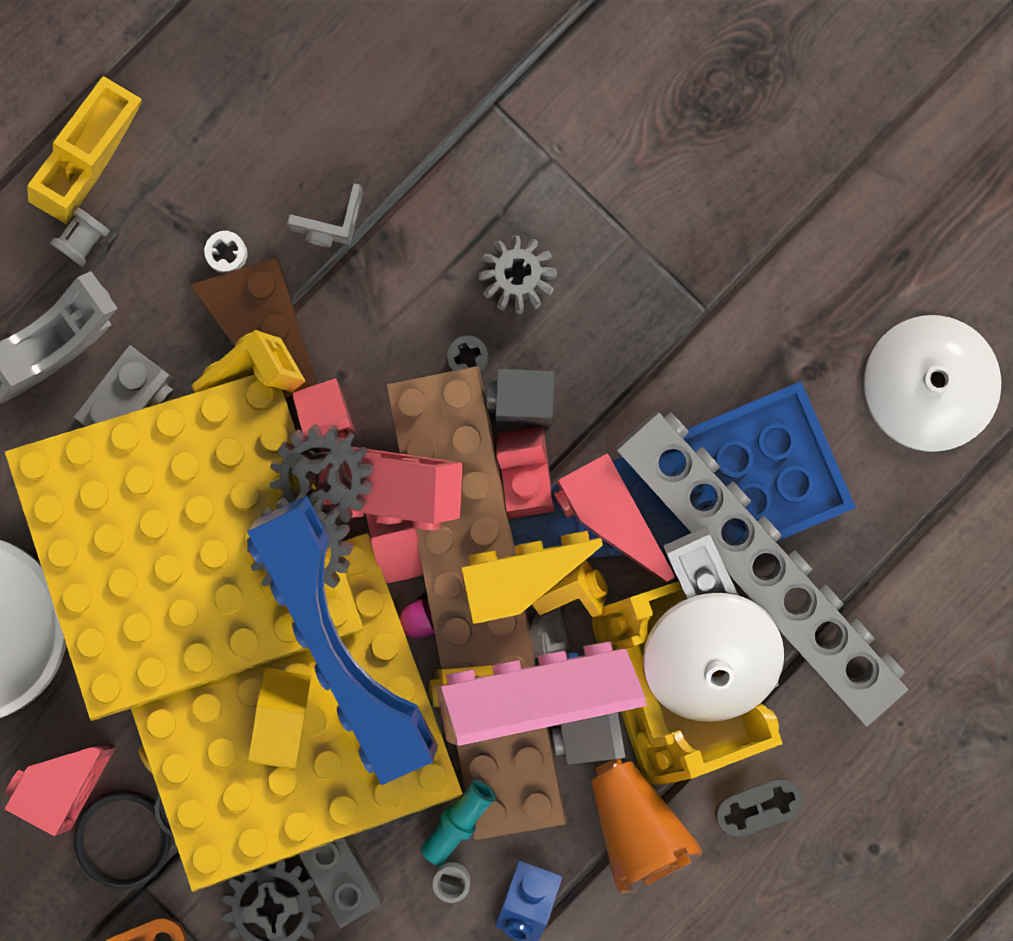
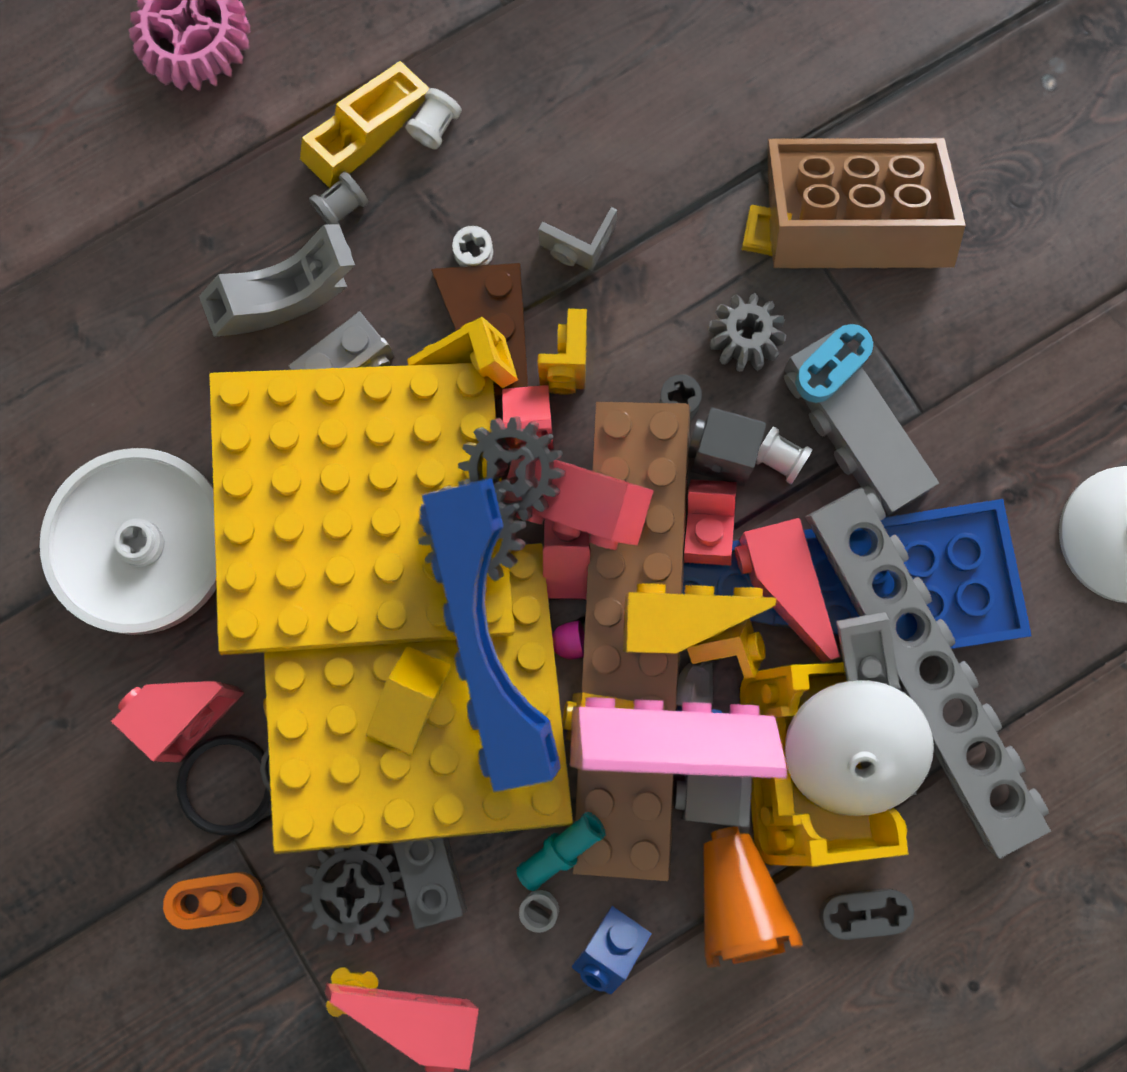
camera: 20 degrees right, 5 degrees down
(152, 129) = (433, 118): none -> white bush
(352, 343) = (567, 369): none -> yellow bracket
(515, 163) = (758, 230): none -> yellow tile
(580, 389) = (782, 455): none -> white bush
(597, 286) = (841, 370): none -> medium azure beam
(600, 114) = (863, 203): none -> medium nougat slope
(647, 341) = (865, 435): none -> light grey brick

